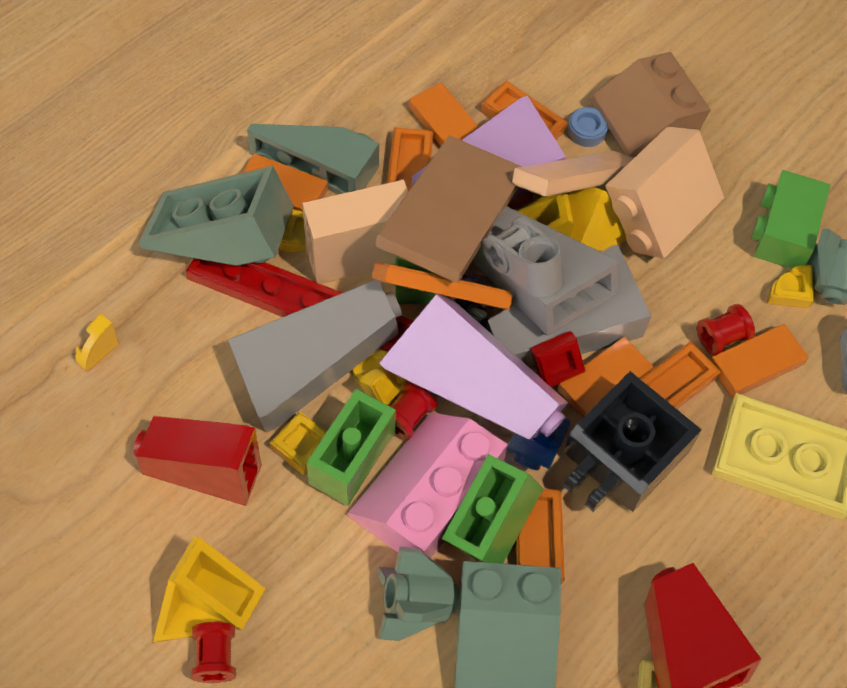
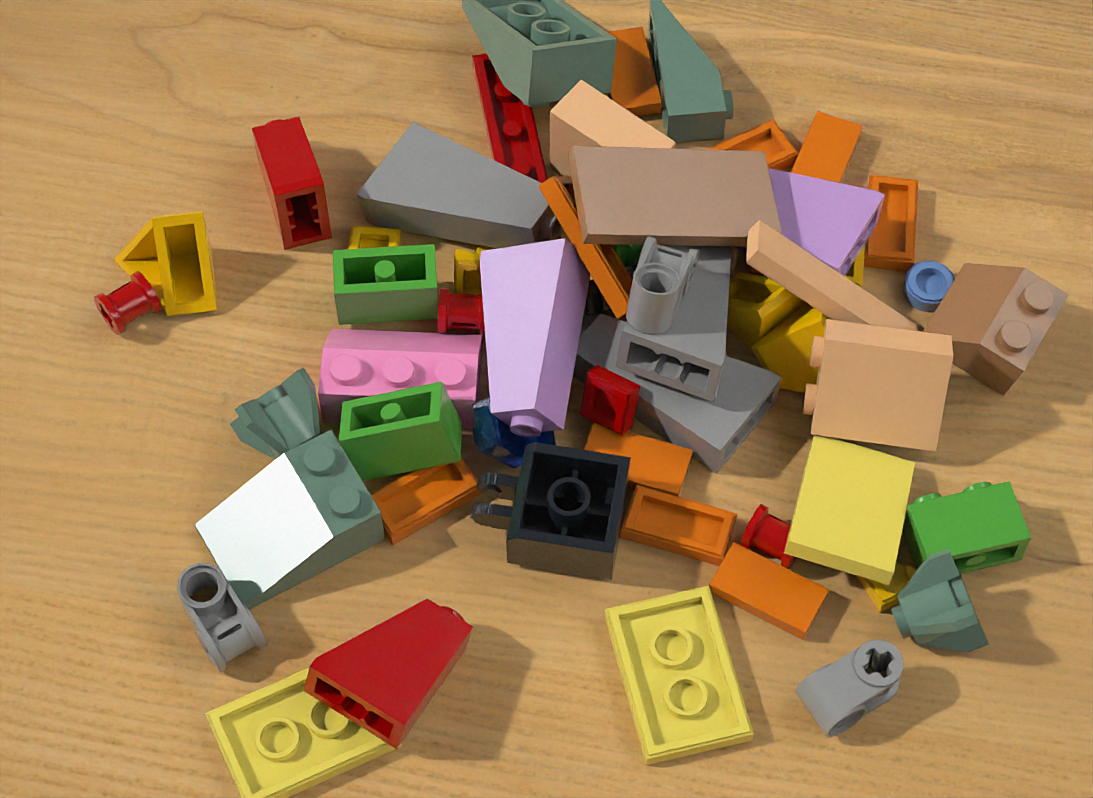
camera: 60 degrees right, 0 degrees up
(98, 345) = (348, 38): yellow tile -> none
(740, 270) = (850, 509): none -> light yellow tile

